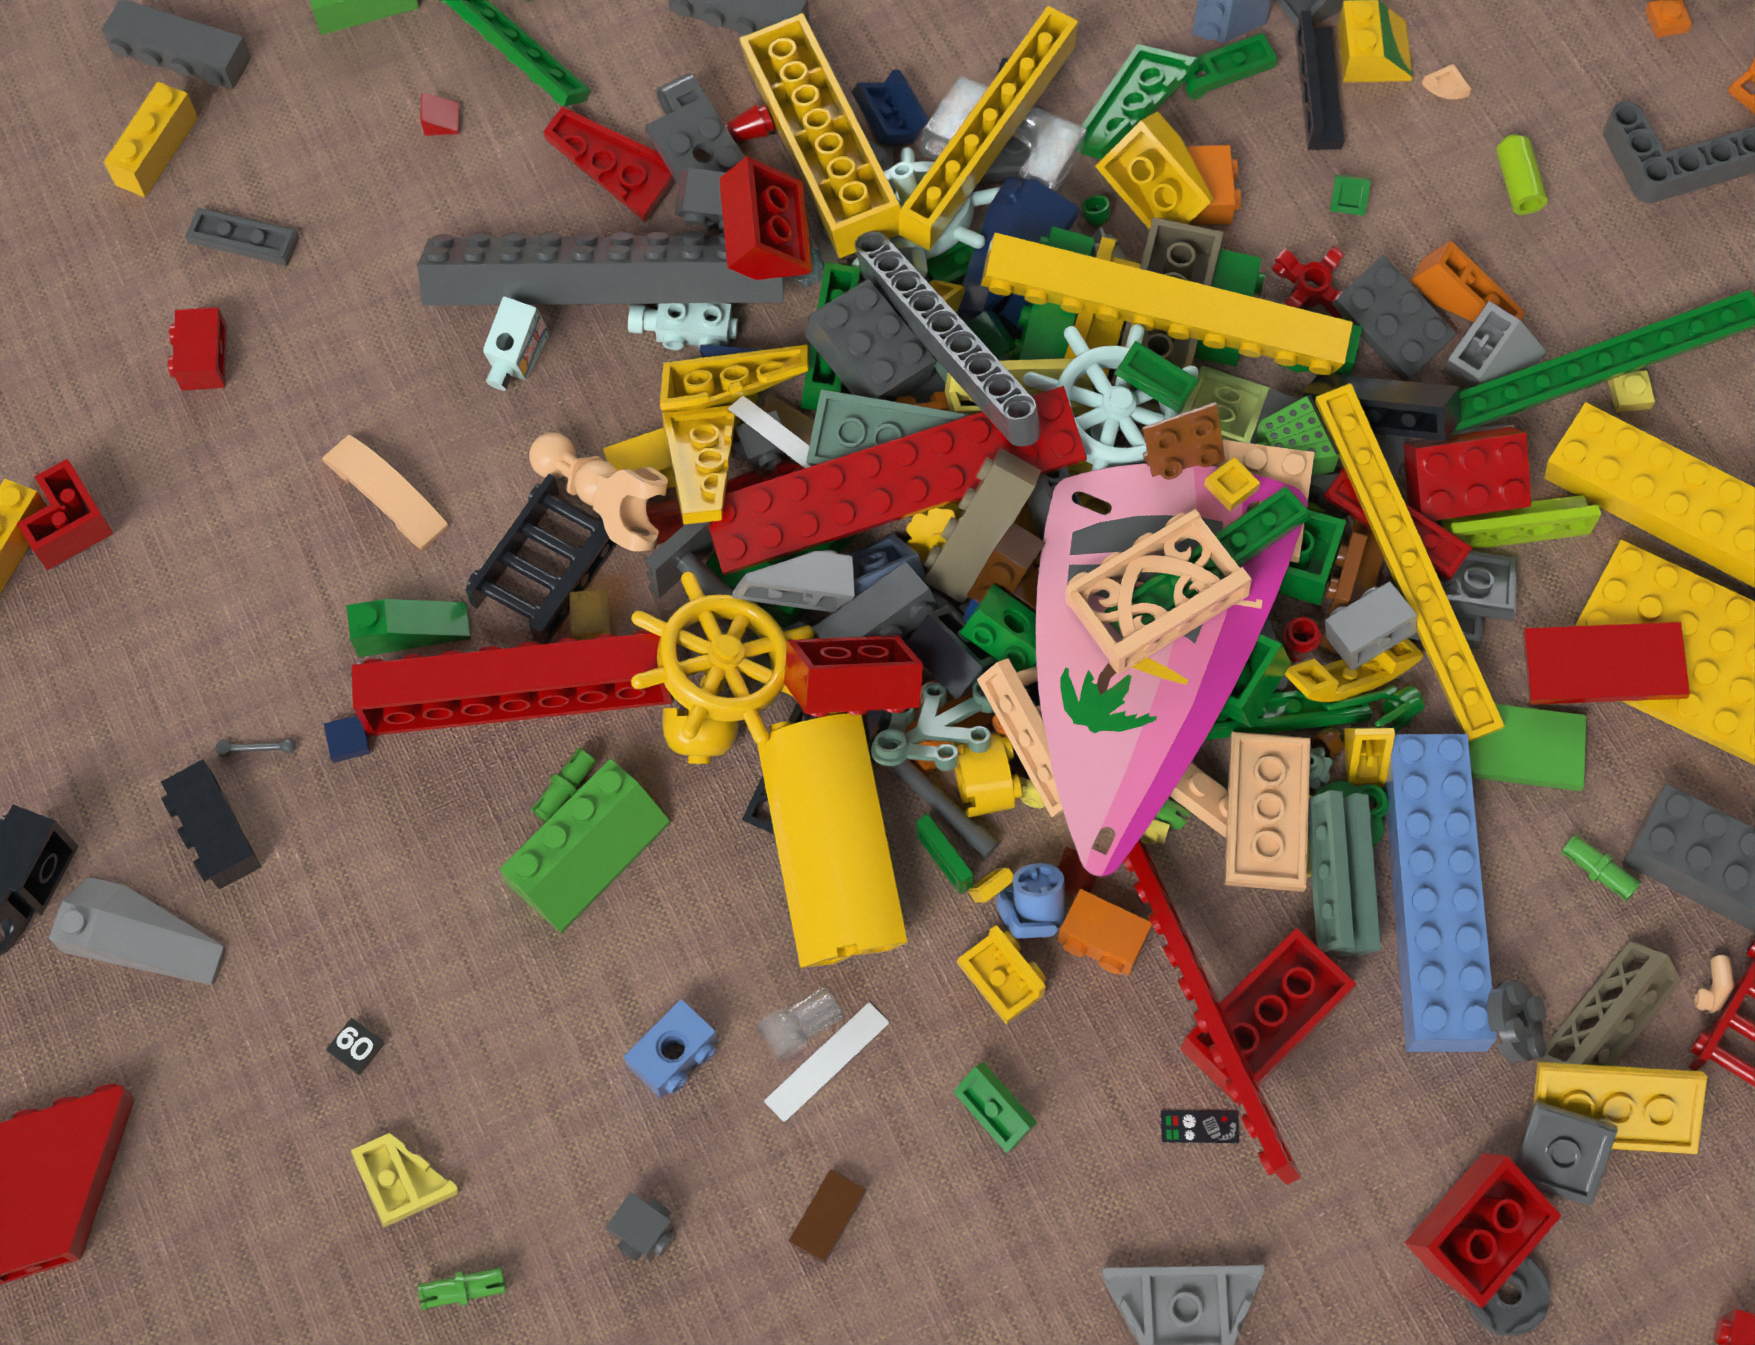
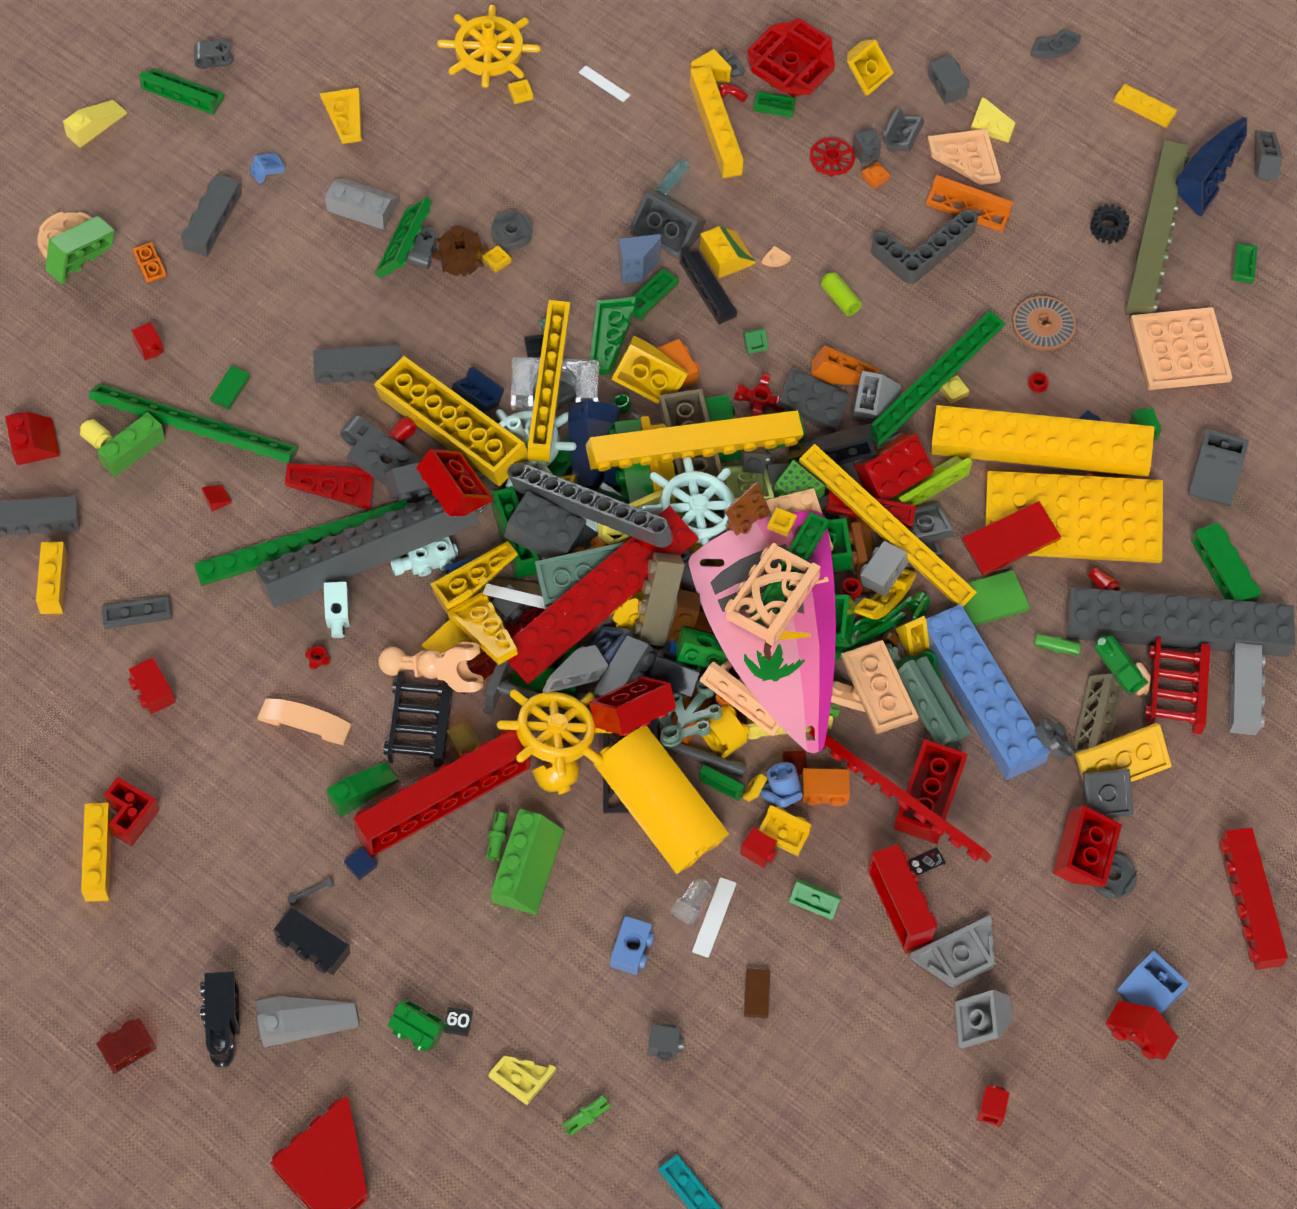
camera: 30 degrees left, 5 degrees down
(287, 1024) = (417, 1025): none -> green brick
(424, 221) = (252, 557): none -> green plate
(451, 396) = (316, 651): none -> red plate
(949, 984) = (759, 848): none -> red brick
(1130, 1172) = (902, 898): none -> red piece
(1156, 377) = (712, 481): green tile -> none
(1255, 375) = (756, 460): none -> dark grey brick
(1689, 947) = (1120, 664): none -> green piece
(1729, 797) = (1103, 581): none -> red cone

